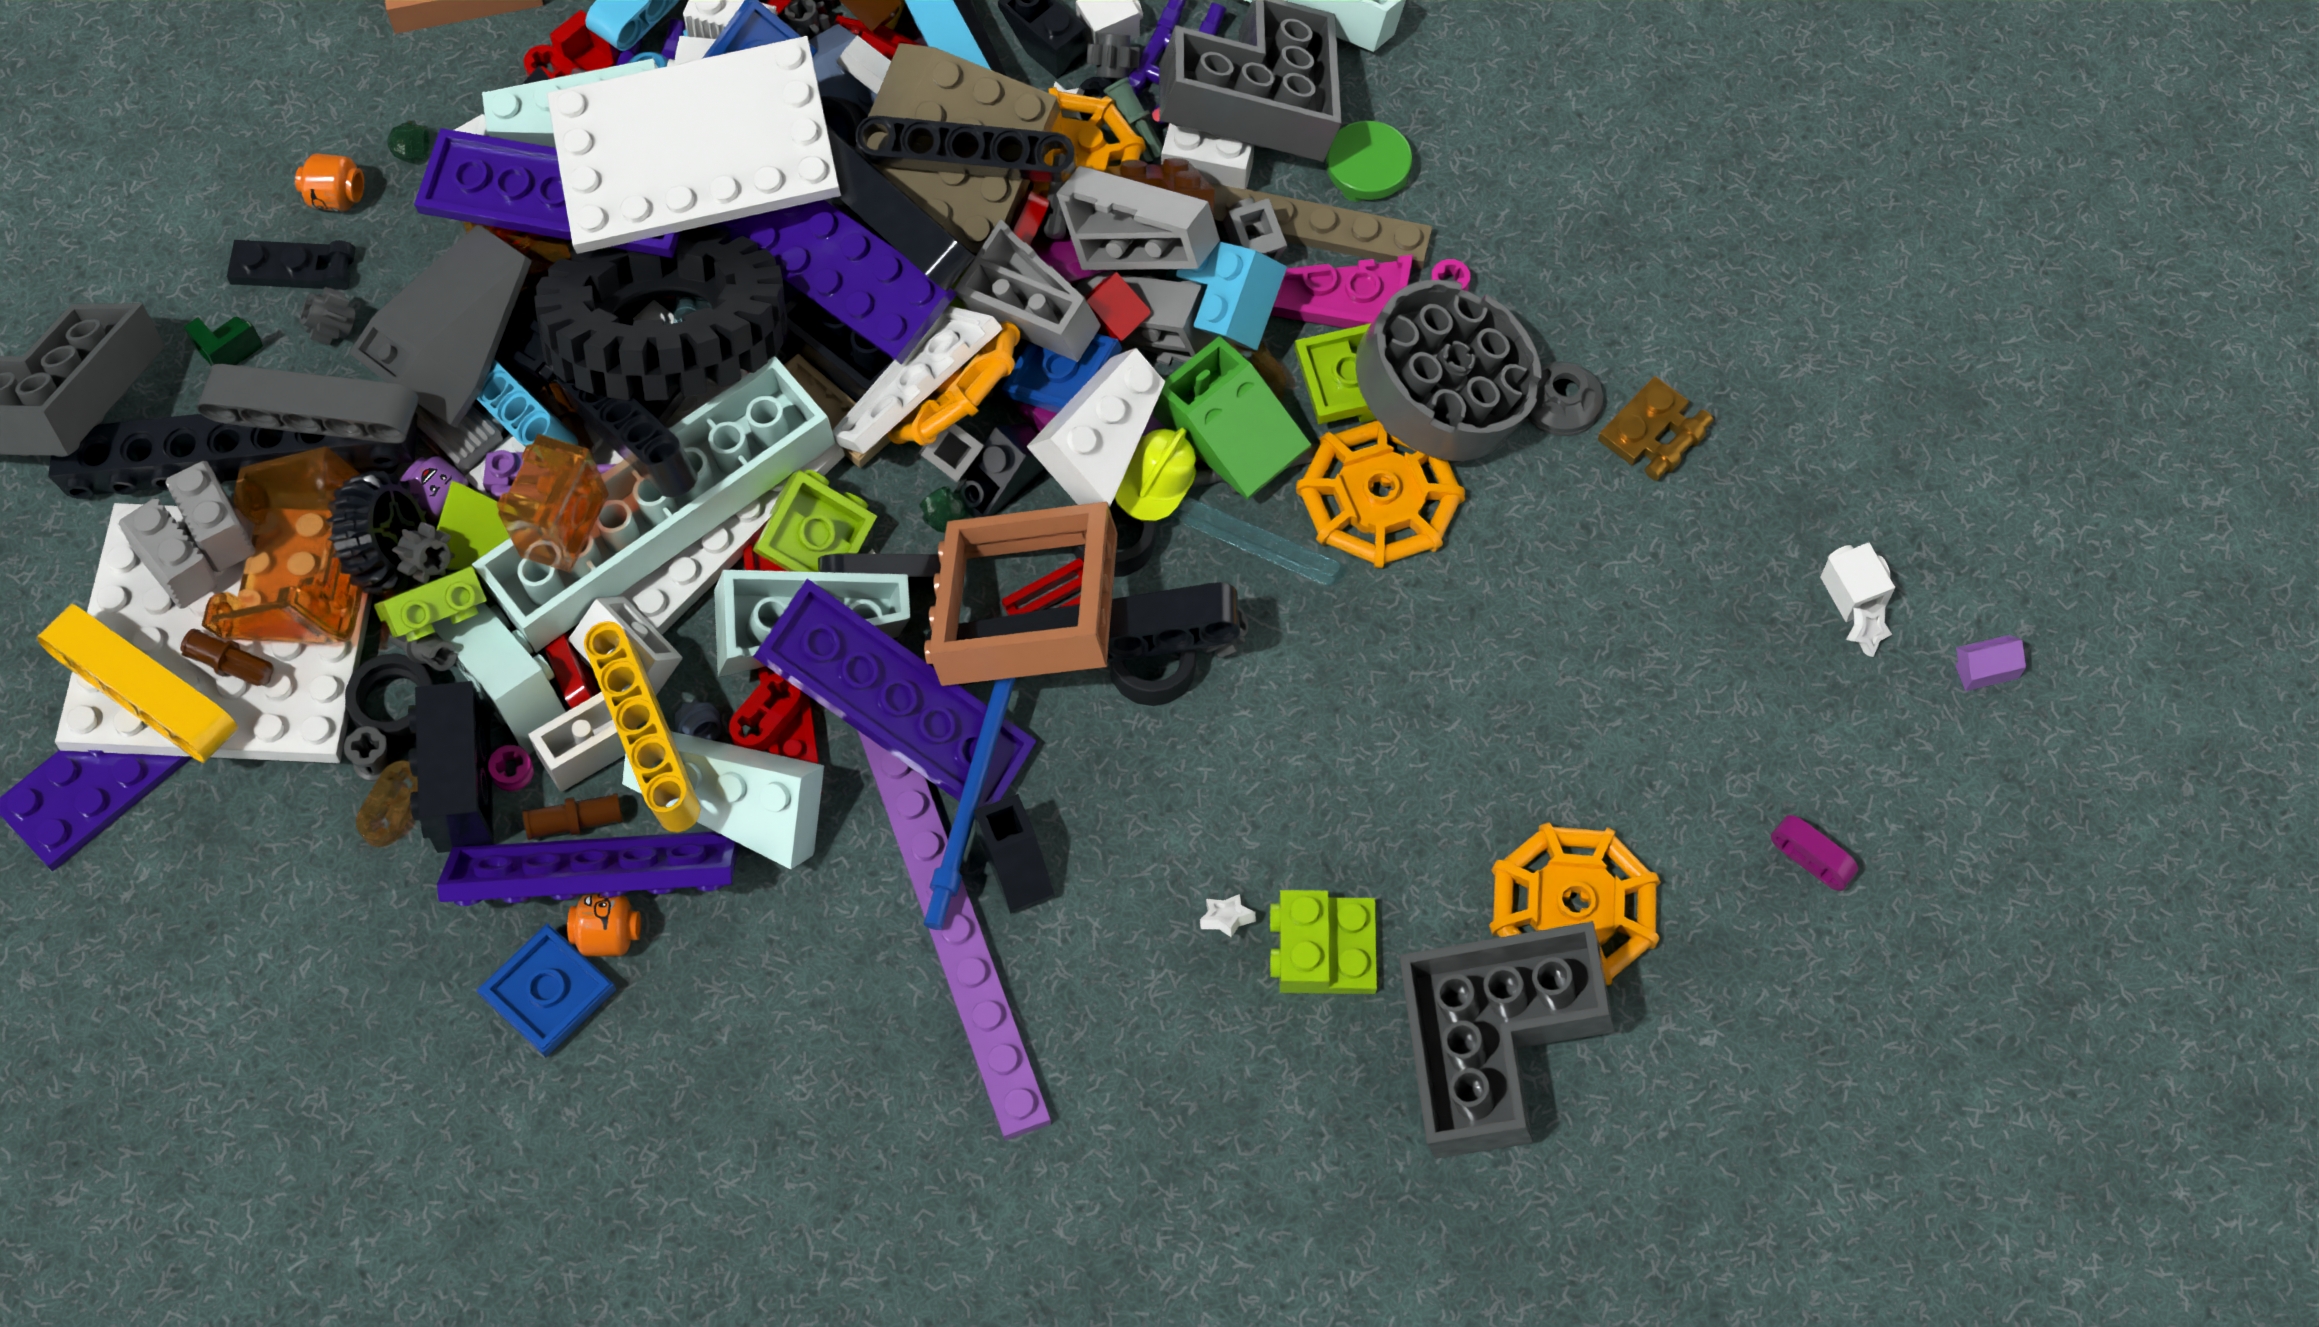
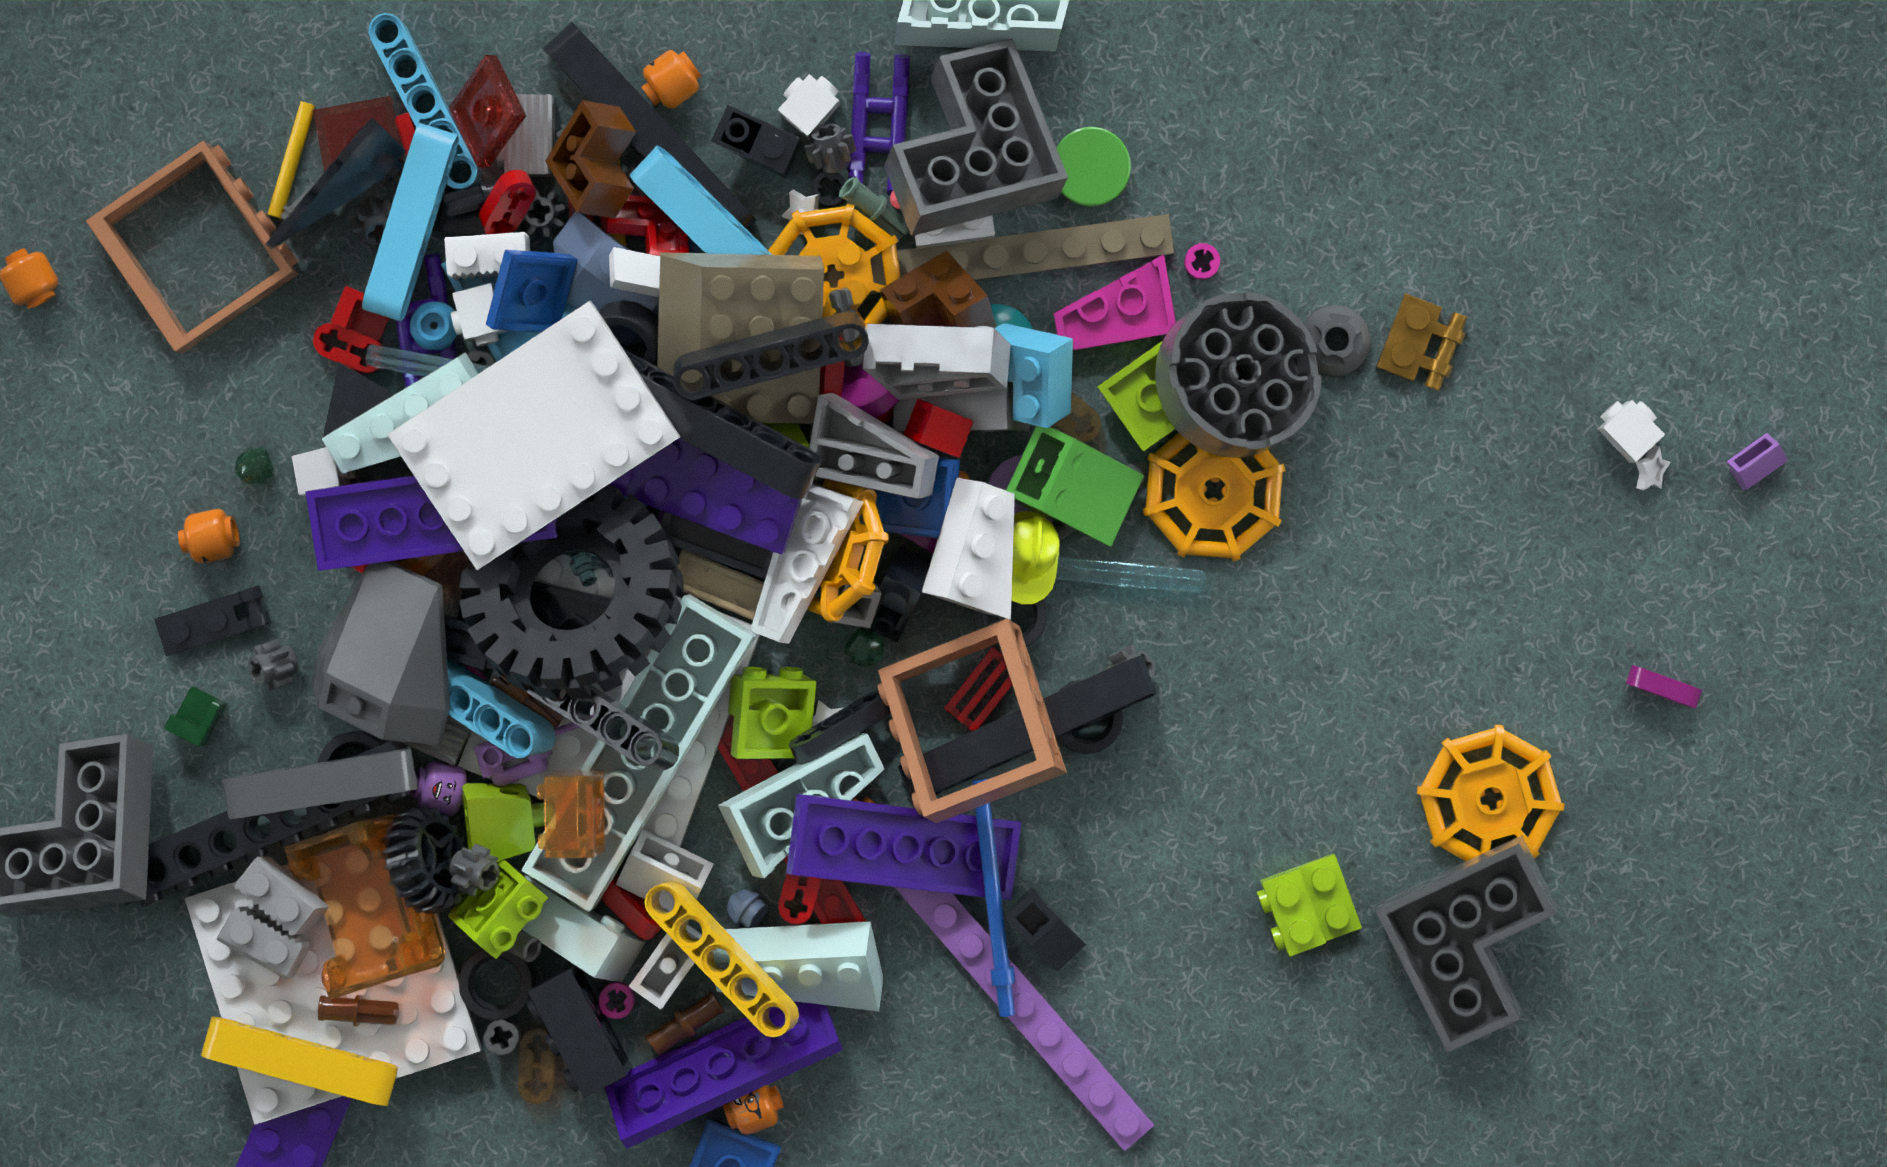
camera: 25 degrees left, 25 degrees up
(1226, 915) = (1225, 911): white piece -> none
(1261, 220) = (1035, 295): light grey brick -> none

